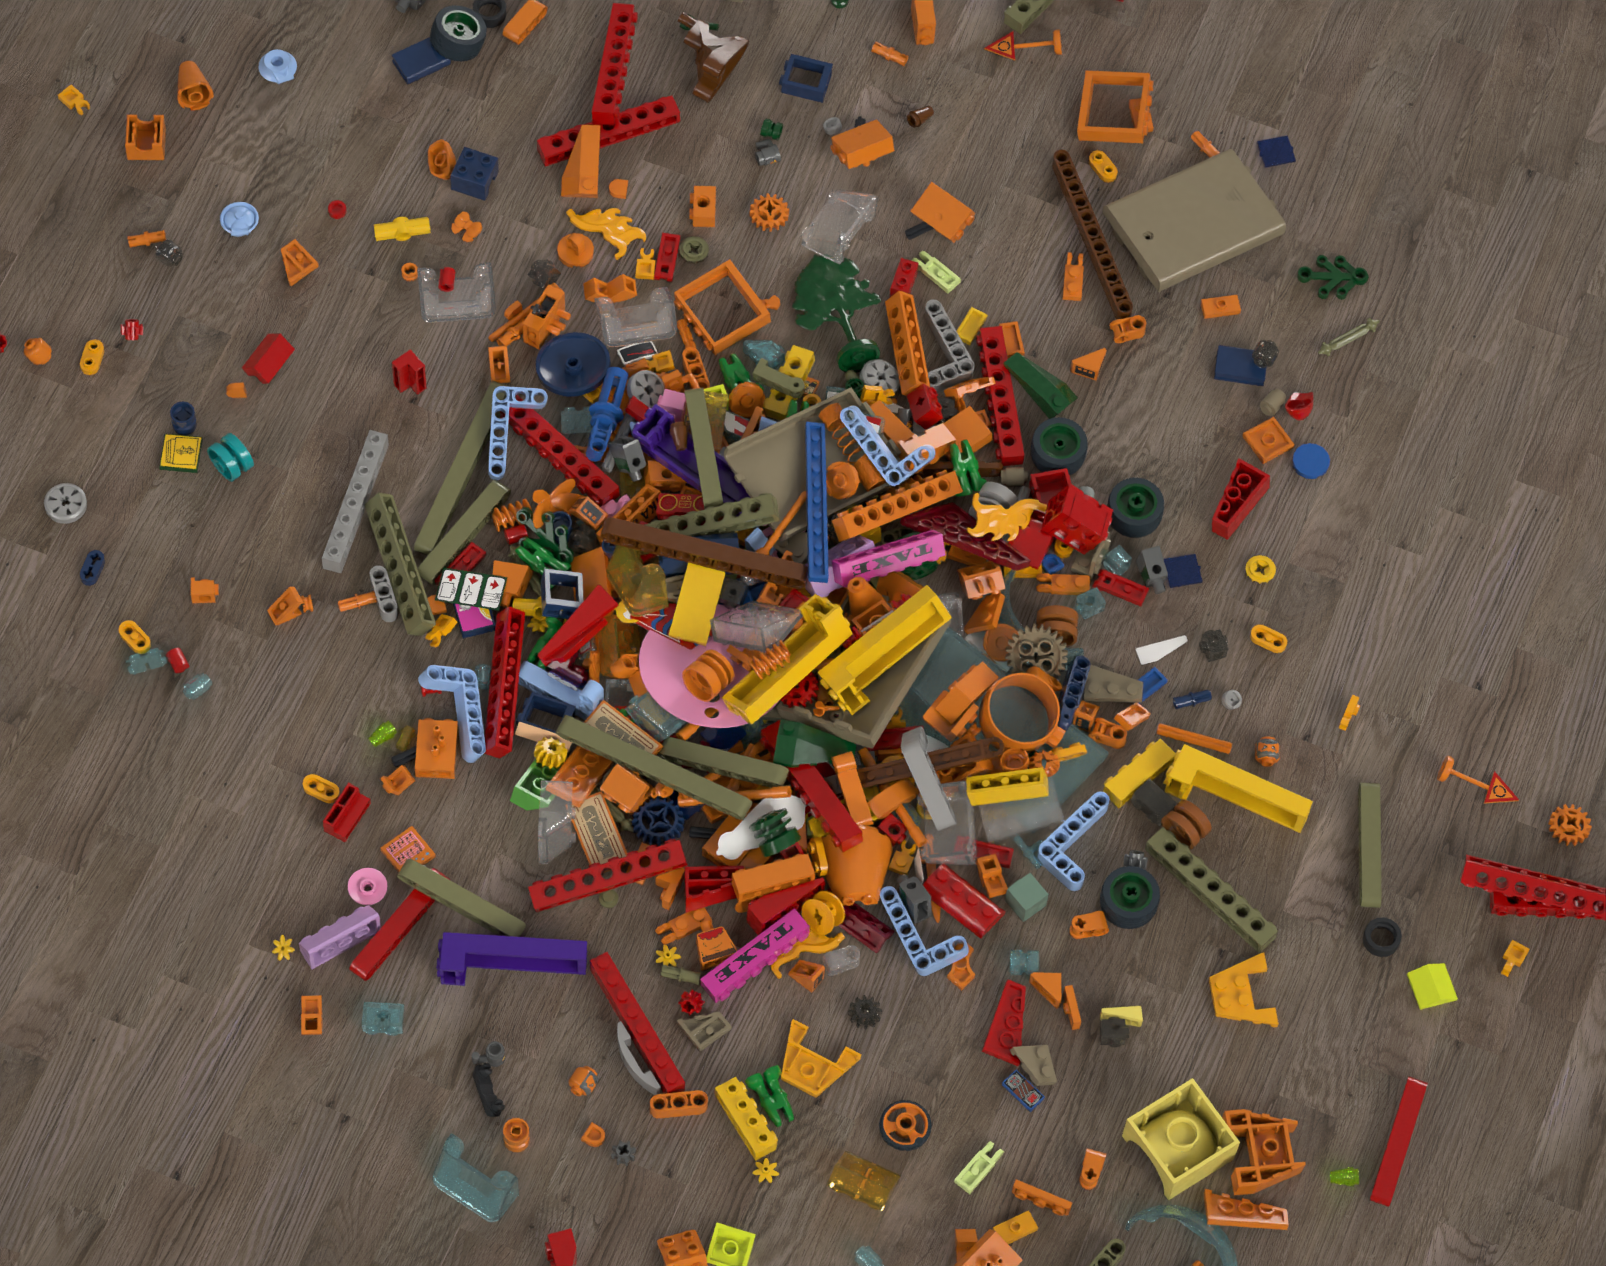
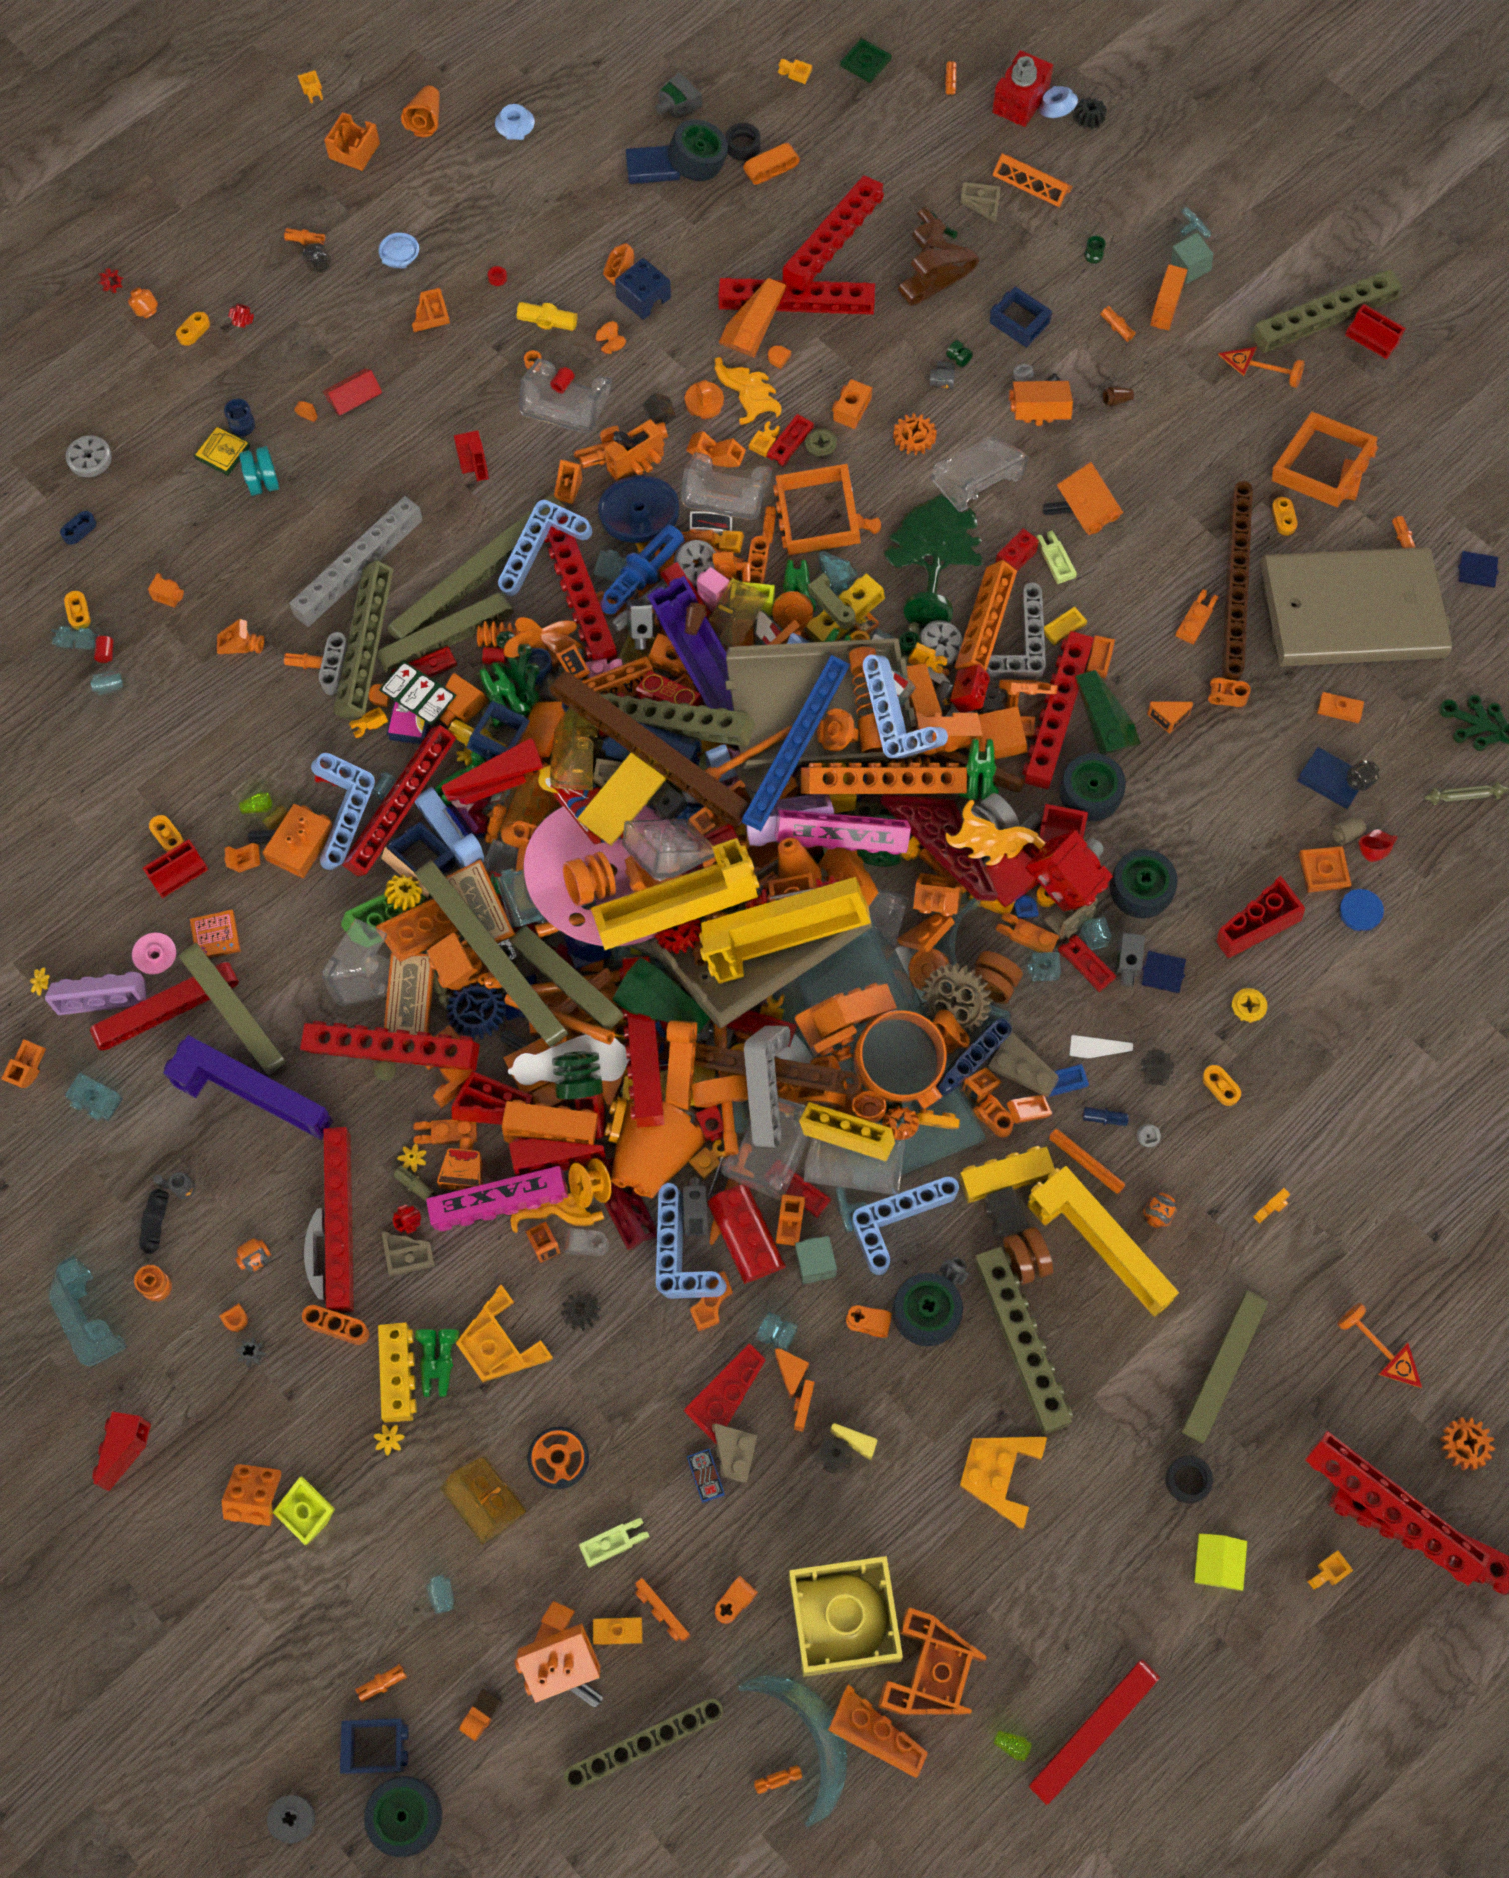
camera: 30 degrees right, 5 degrees up
(703, 447) = (711, 640): olive beam -> none
(770, 660) = (652, 890): orange piece -> none
(821, 708) = (689, 962): orange hand -> none
(1014, 476) = (1030, 799): dark tan brick -> none

